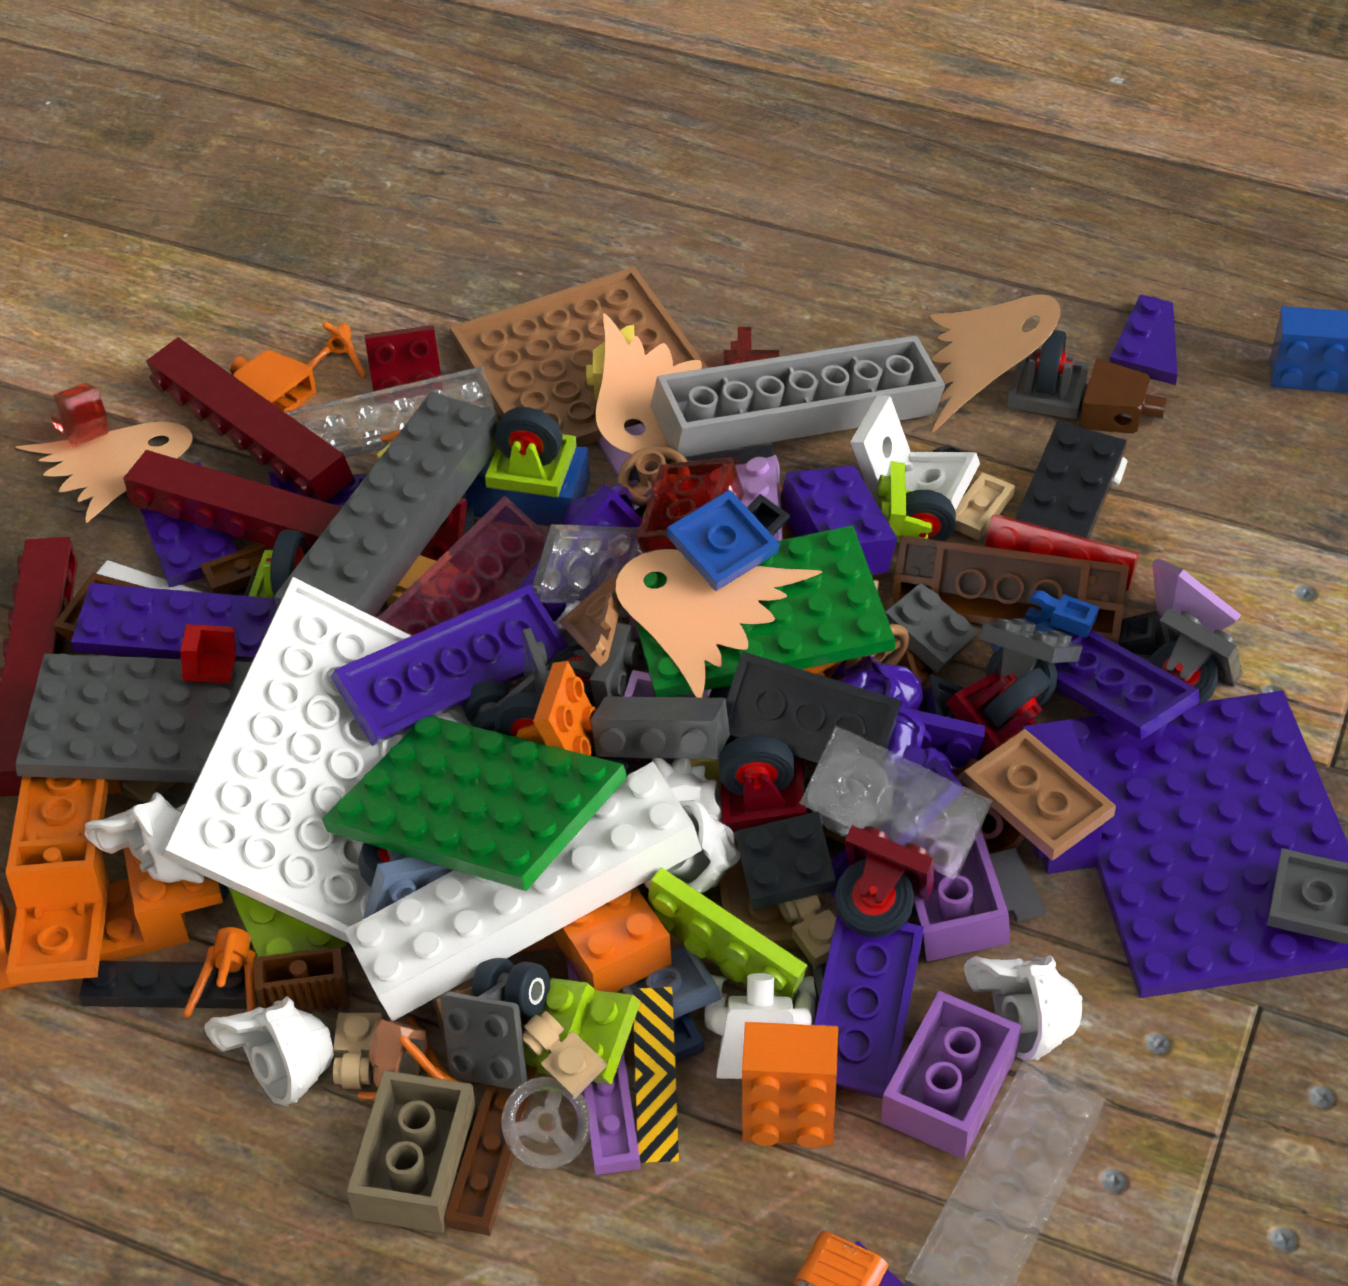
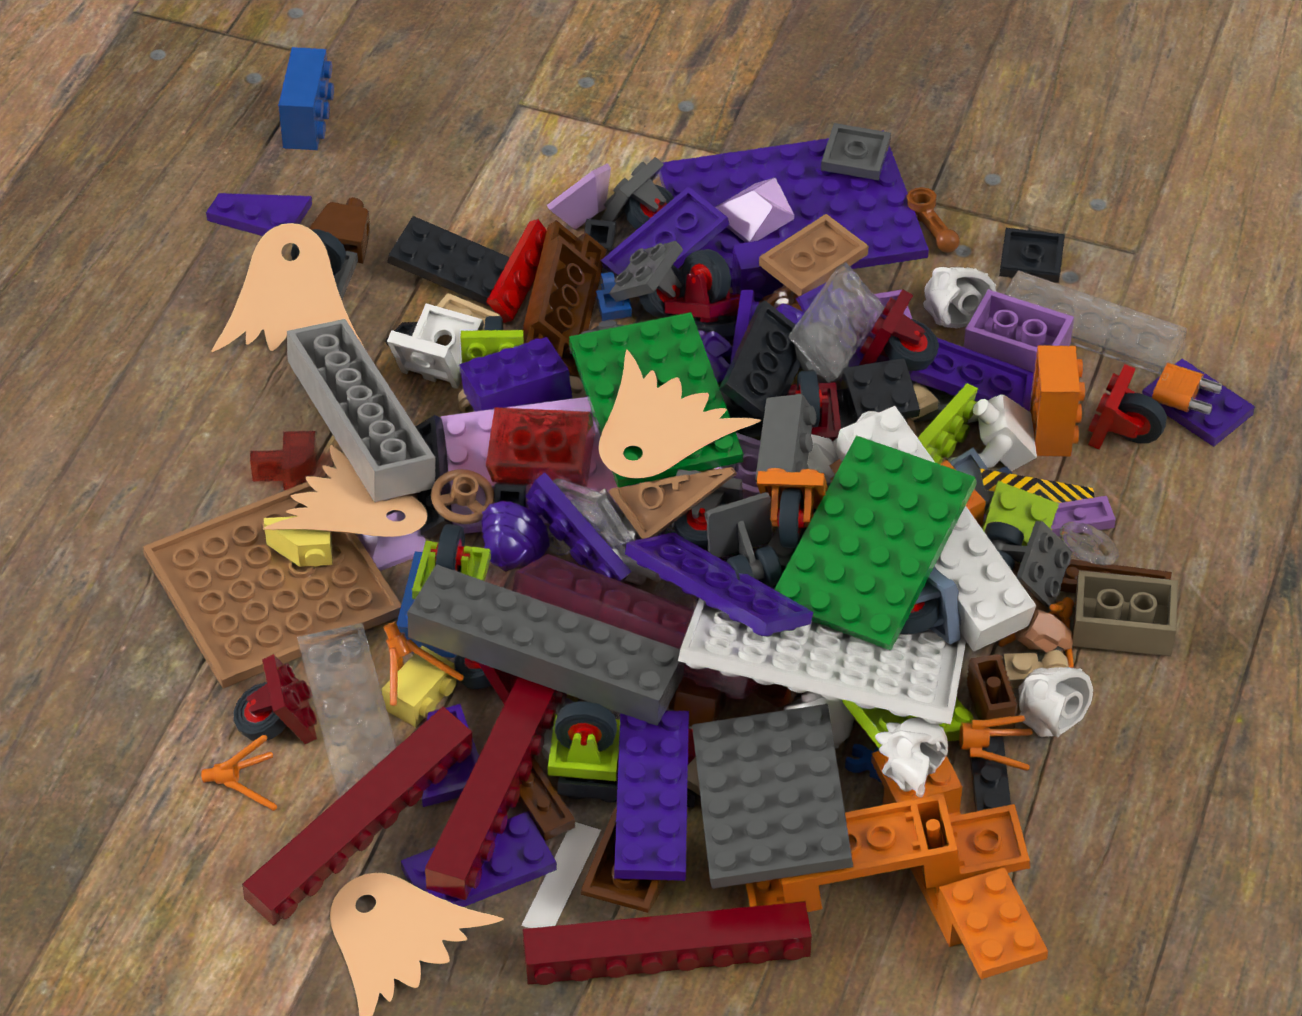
camera: 95 degrees left, 0 degrees up
(80, 414) = (353, 955): clear red brick -> none
(208, 653) = (712, 759): red panel -> none
(276, 378) = (290, 811): orange torso -> none
(570, 1061) = (1054, 512): tan plate -> none
(722, 540) = (608, 397): blue plate -> none
(768, 514) = (544, 399): black slope -> none
(789, 1189) = (1127, 413): none -> plate
(1067, 614) = (598, 260): blue plate -> none
(1150, 1129) = (1032, 253): none -> black tile
(1165, 1013) = (946, 239): none -> dark orange piece
(1181, 779) = (757, 210): none -> lavender slope

